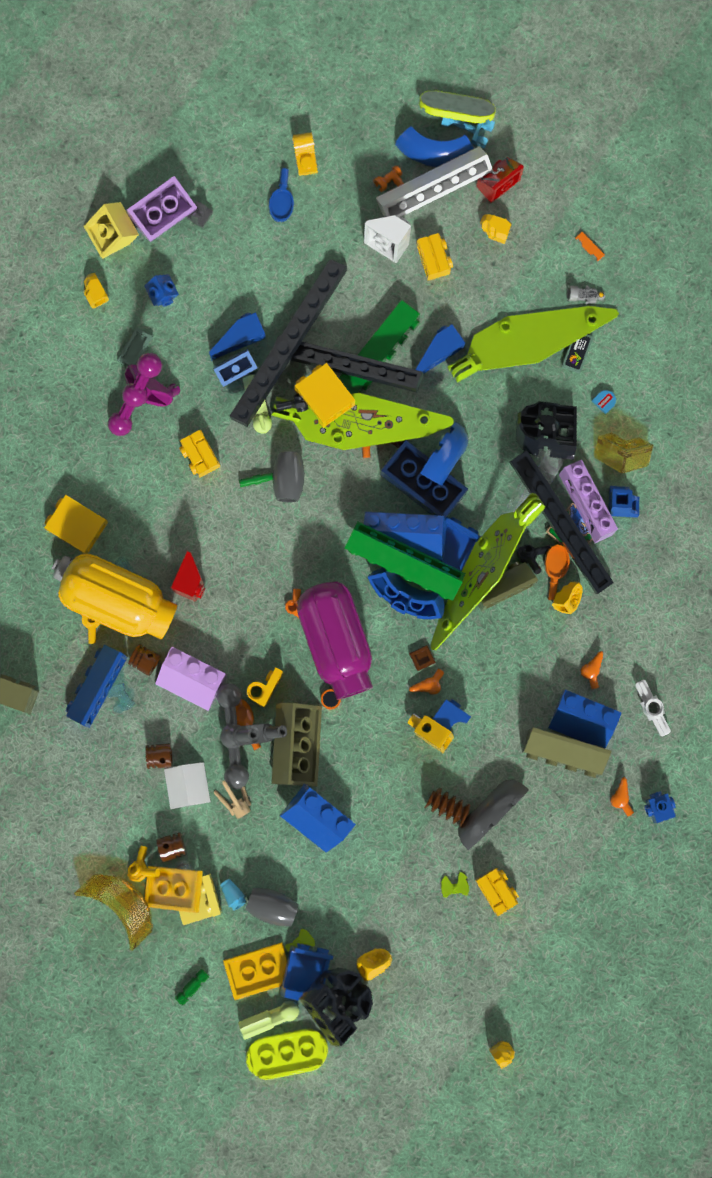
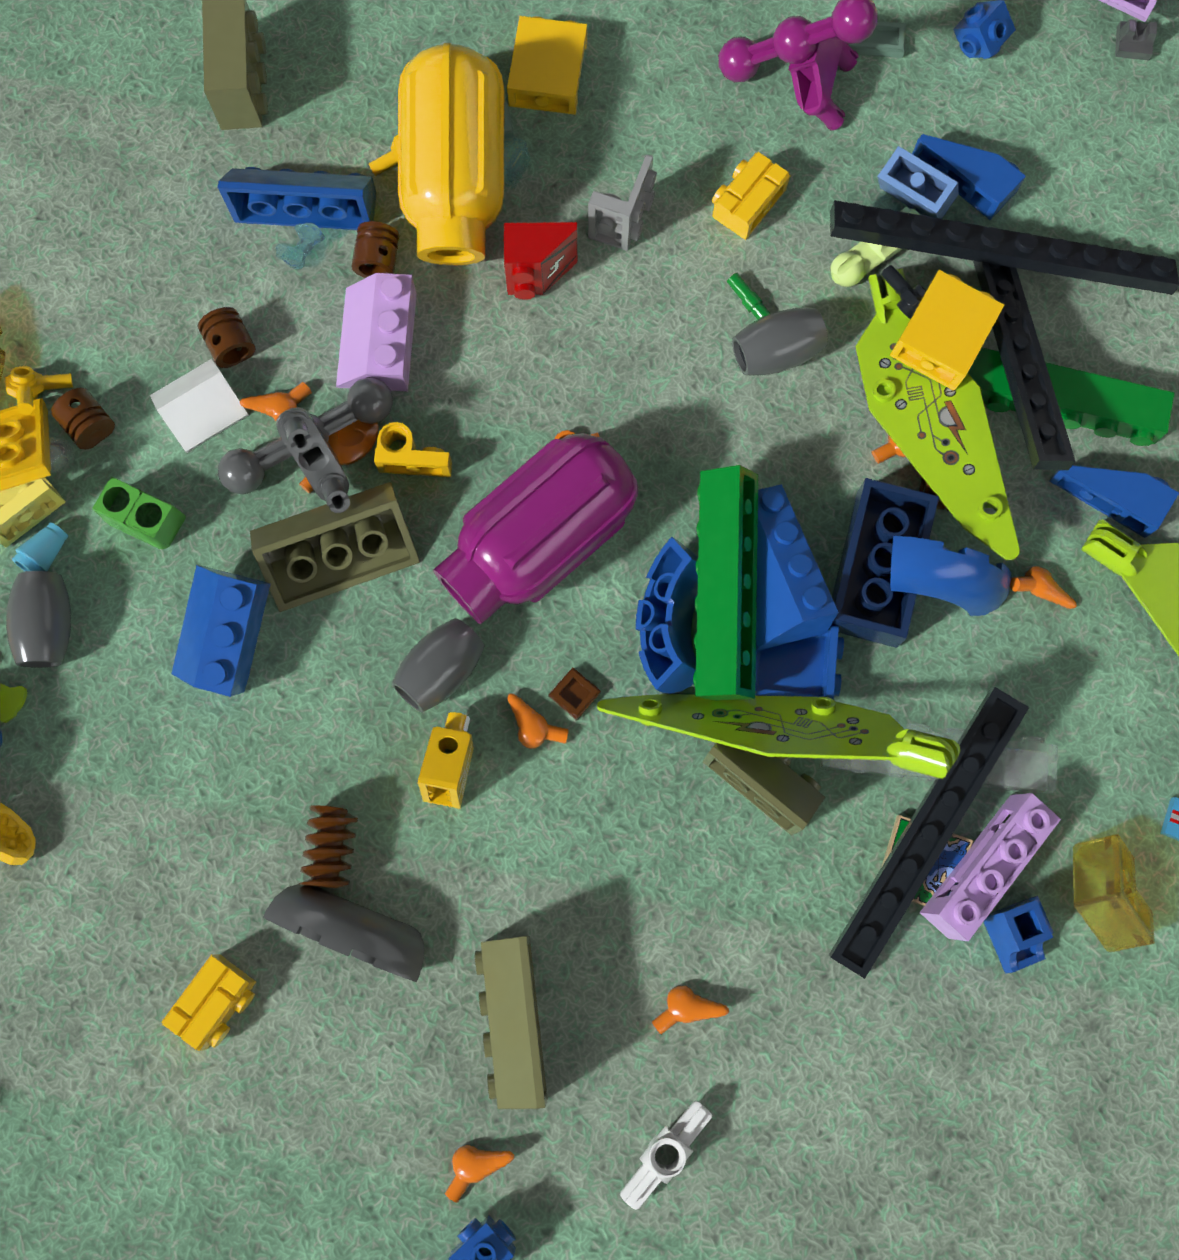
camera: 70 degrees right, 5 degrees down
(185, 531) = (620, 221): none -> light grey bracket
(206, 744) = (276, 402): none -> orange animal
(238, 840) = (159, 535): none -> bright green piece
(239, 806) = (191, 498): tan plant -> none
(329, 700) = (426, 568): black tile -> none
(381, 717) = (438, 665): none -> dark grey piece
(450, 714) = (492, 778): blue brick -> none
(460, 887) = (196, 935): lime piece -> none
(466, 409) = (1041, 584): none -> orange animal
(529, 555) = (843, 801): black piece -> none
(532, 438) = (1080, 703): black connector -> none
(556, 567) = (843, 860): orange piece -> none
(568, 598) = (797, 906): yellow rock -> none
(584, 719) = (588, 1033): blue slope -> none

